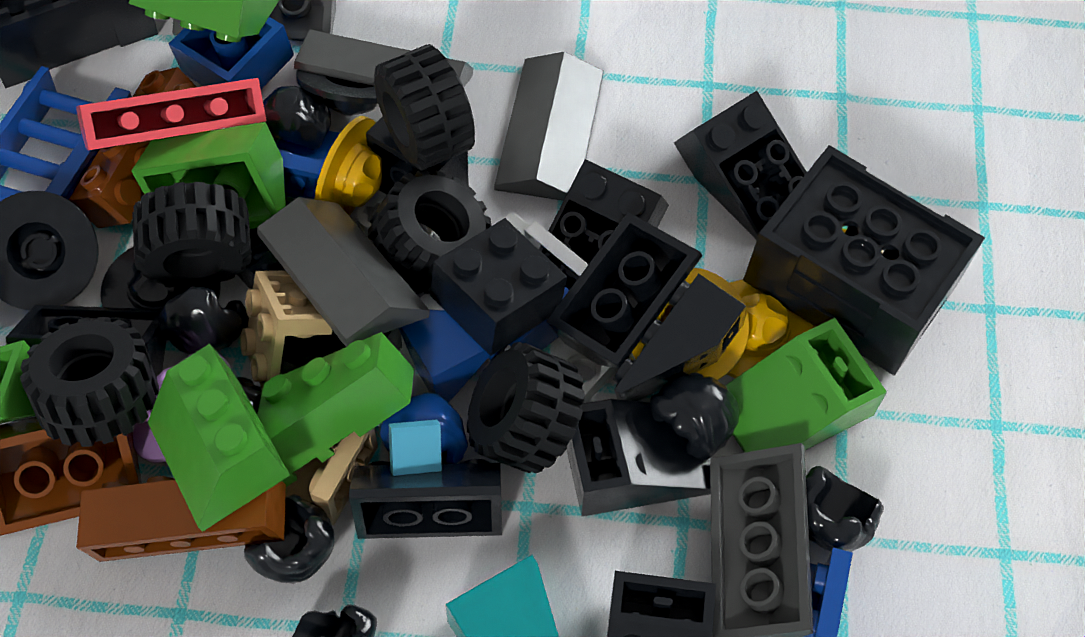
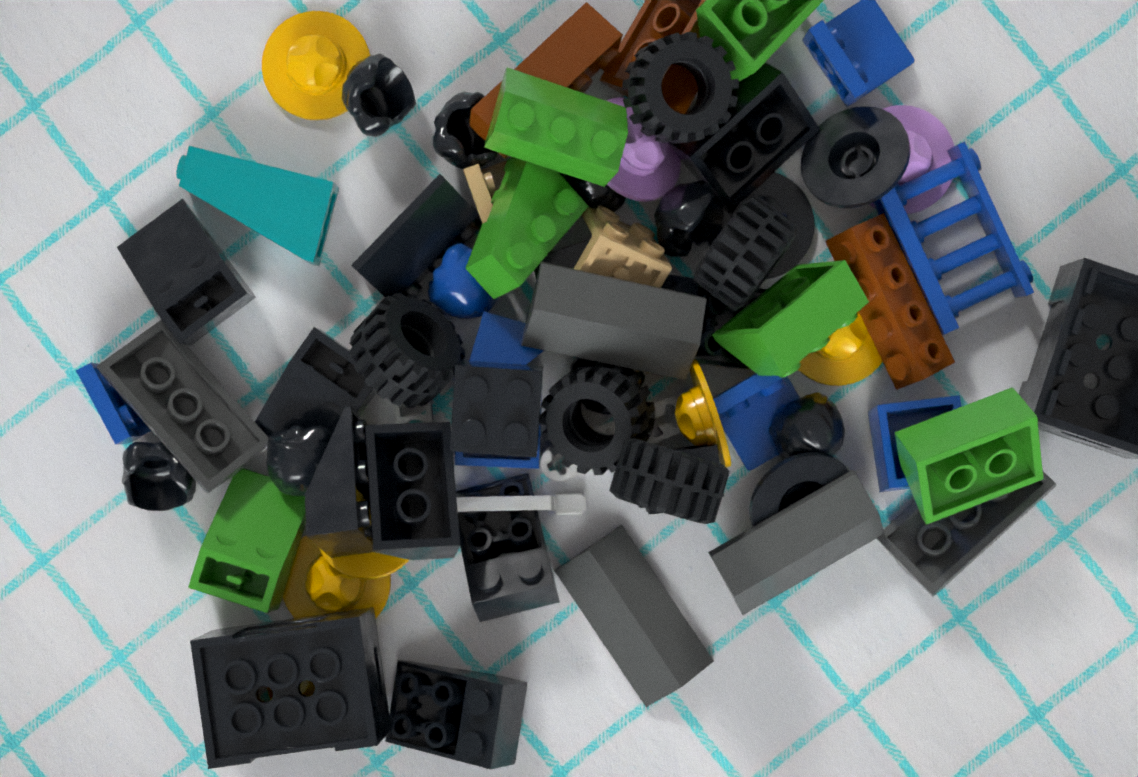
camera: 135 degrees right, 30 degrees up
(171, 113) = (870, 328): coral brick -> none
(415, 447) = (441, 251): medium azure tile -> none

